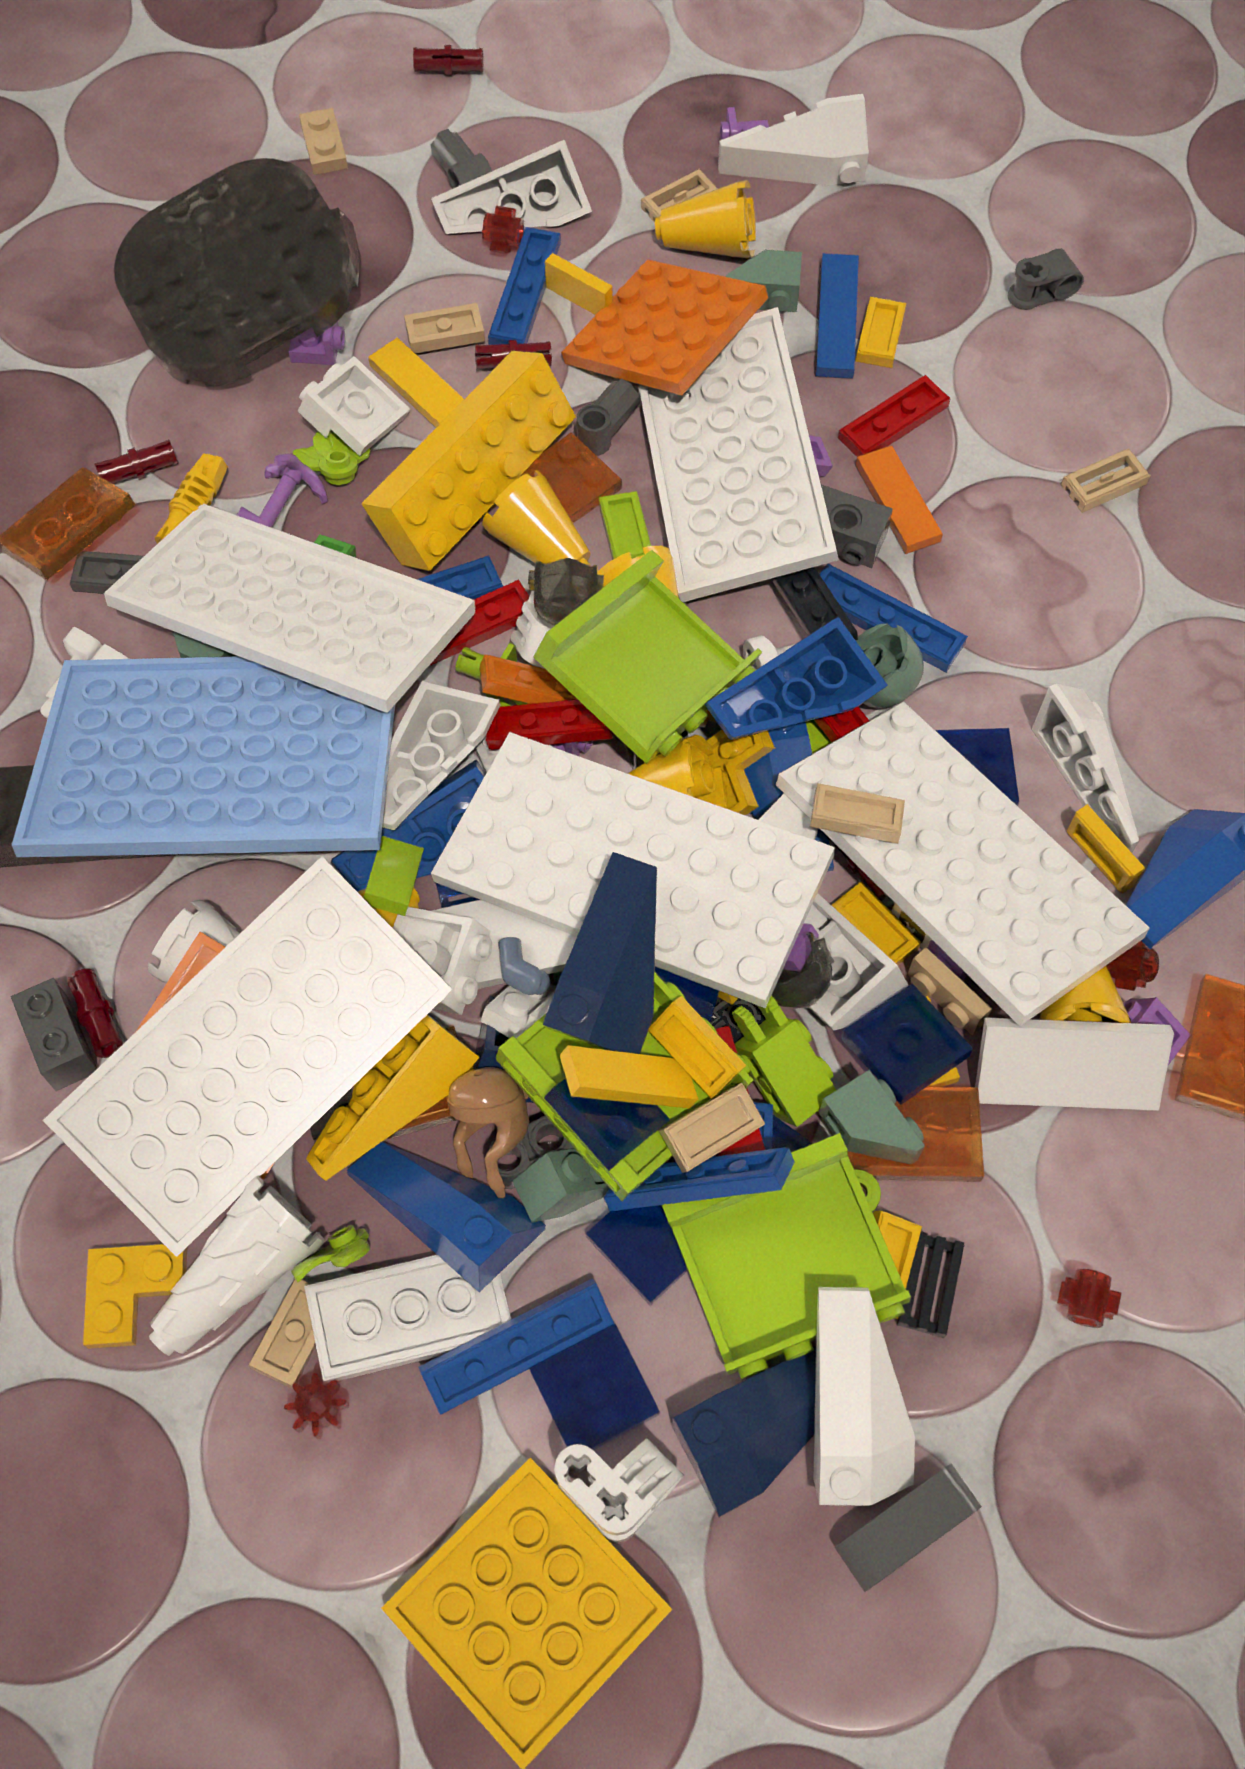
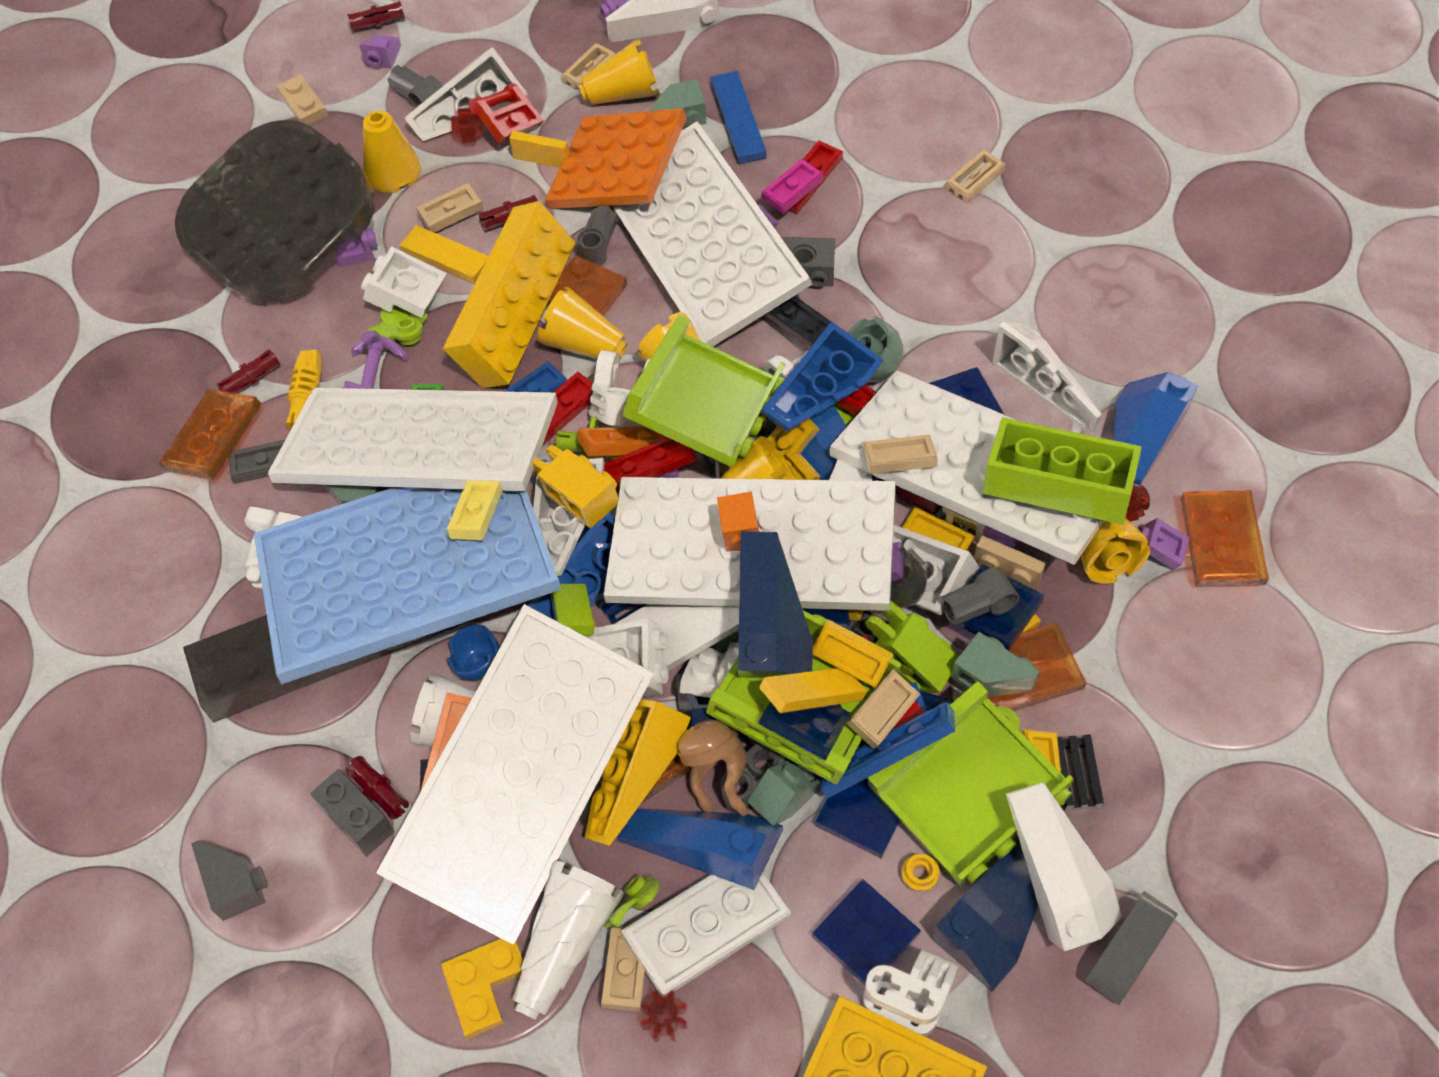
camera: 15 degrees left, 5 degrees down
(260, 884) = (472, 652): none -> blue hair
(317, 718) = (474, 510): none -> light yellow plate
(394, 239) = (387, 154): none -> yellow cone
(438, 105) = (380, 51): none -> medium lavender bracket
(451, 725) = (577, 485): none -> yellow hinge
(516, 1346) = (795, 920): blue tile -> none
(518, 972) = (694, 647): sand blue arm -> none
(524, 287) = (498, 171): blue tile -> none
(562, 587) = (623, 363): clear smoke cap -> none
(565, 237) = (517, 117): none -> red plate
(620, 829) = (736, 515): none -> orange brick
(624, 524) = (640, 309): lime tile -> none
(694, 1326) = (924, 862): none -> yellow plate
(866, 425) = (792, 186): none -> dark pink plate
(870, 607) = (848, 312): blue tile -> none
(880, 332) = (774, 120): yellow tile -> none
(894, 488) = (825, 223): orange tile -> none
(901, 1025) = (988, 593): none -> dark grey piece
(1044, 280) = (878, 50): dark grey piece -> none
(1047, 902) = (1062, 470): none -> lime brick
(1073, 1063) = (1117, 582): white tile -> none
(1089, 1298) = (1193, 742): clear red gear -> none
(1105, 849) = (1070, 420): yellow tile -> none

